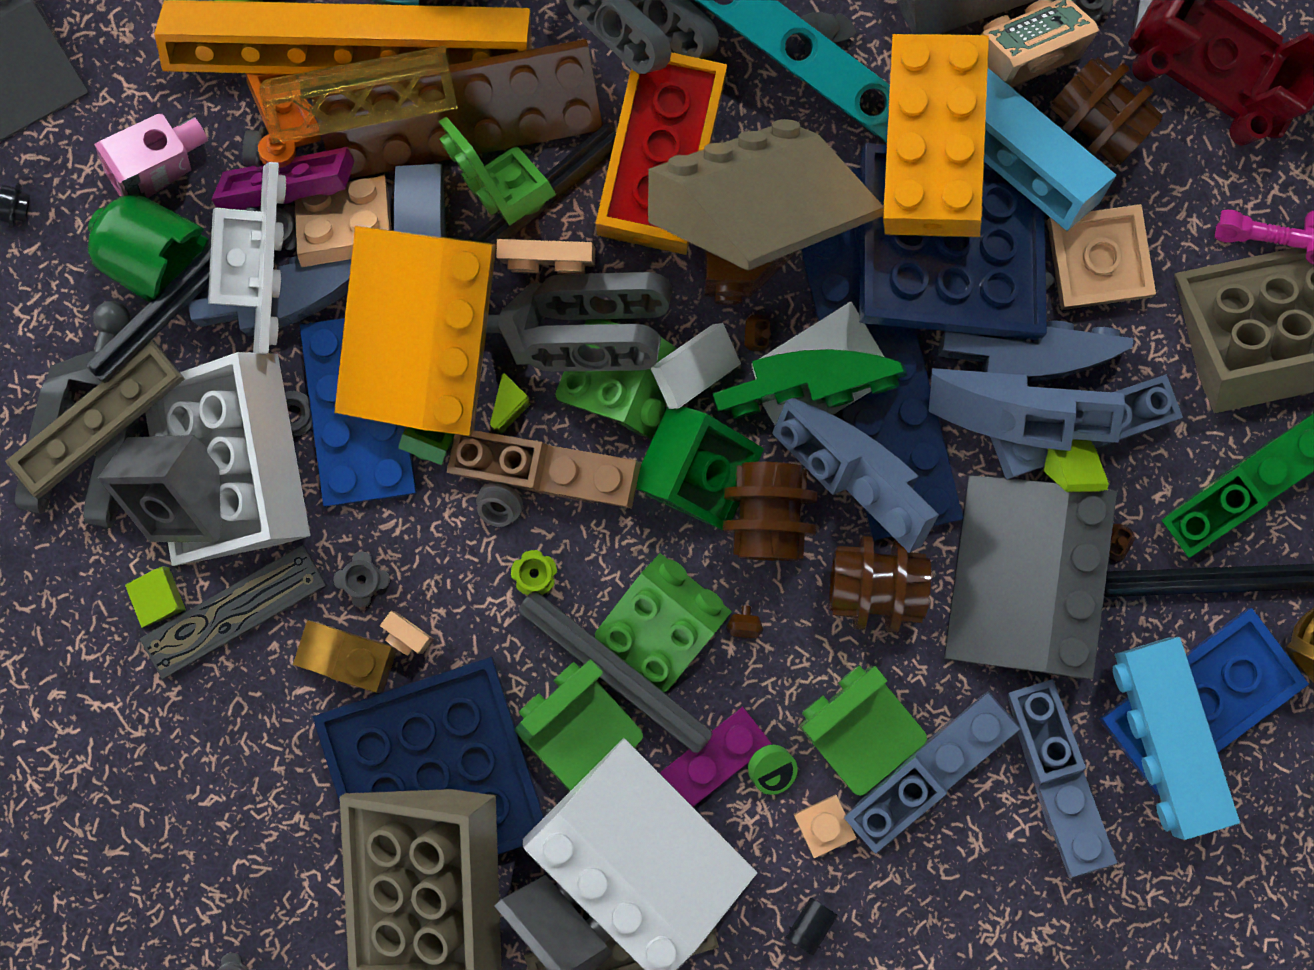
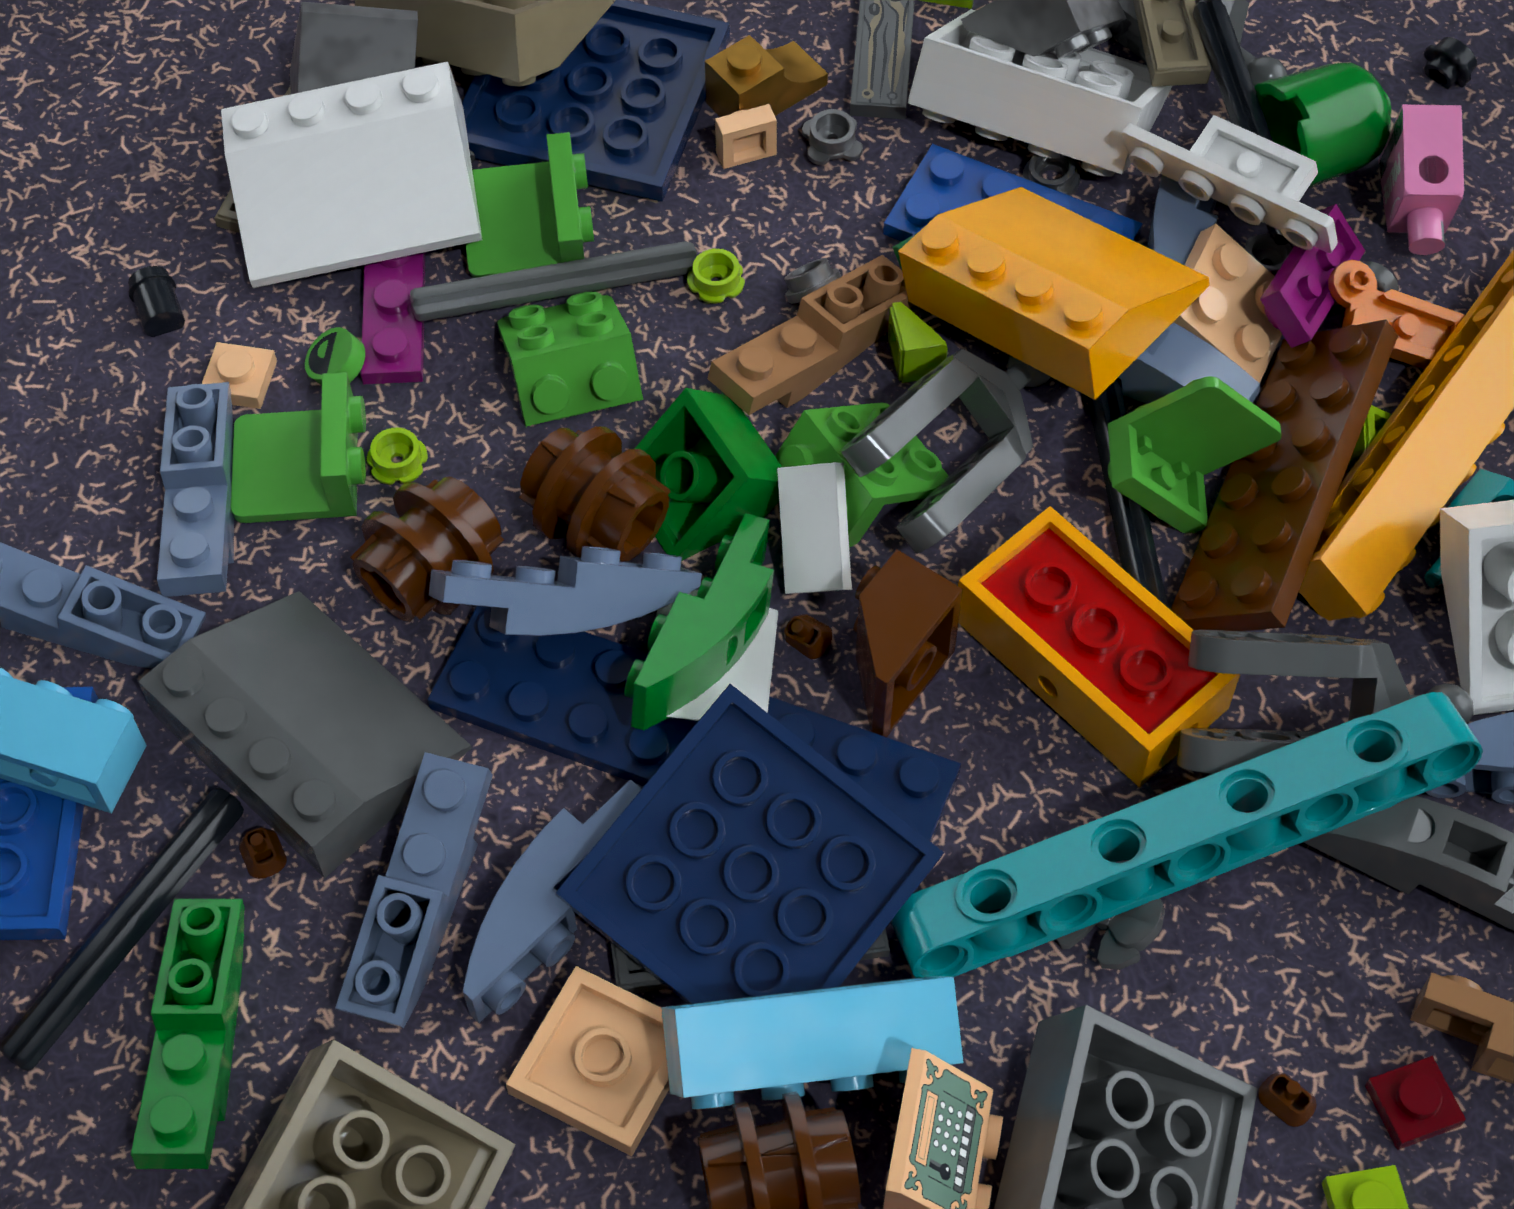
camera: 125 degrees right, 25 degrees down
(356, 76) = (1383, 360): clear yellow fence -> none
(527, 255) = (1051, 450): light nougat plate -> none
(744, 624) = (501, 428): reddish brown rock -> none
(759, 195) = (949, 657): dark tan slope -> none
(826, 672) = (395, 443): none -> lime plate
(936, 135) = (888, 894): light orange brick -> none
(1031, 416) = (496, 790): sand blue slope -> none
(1076, 469) = (377, 821): lime slope -> none

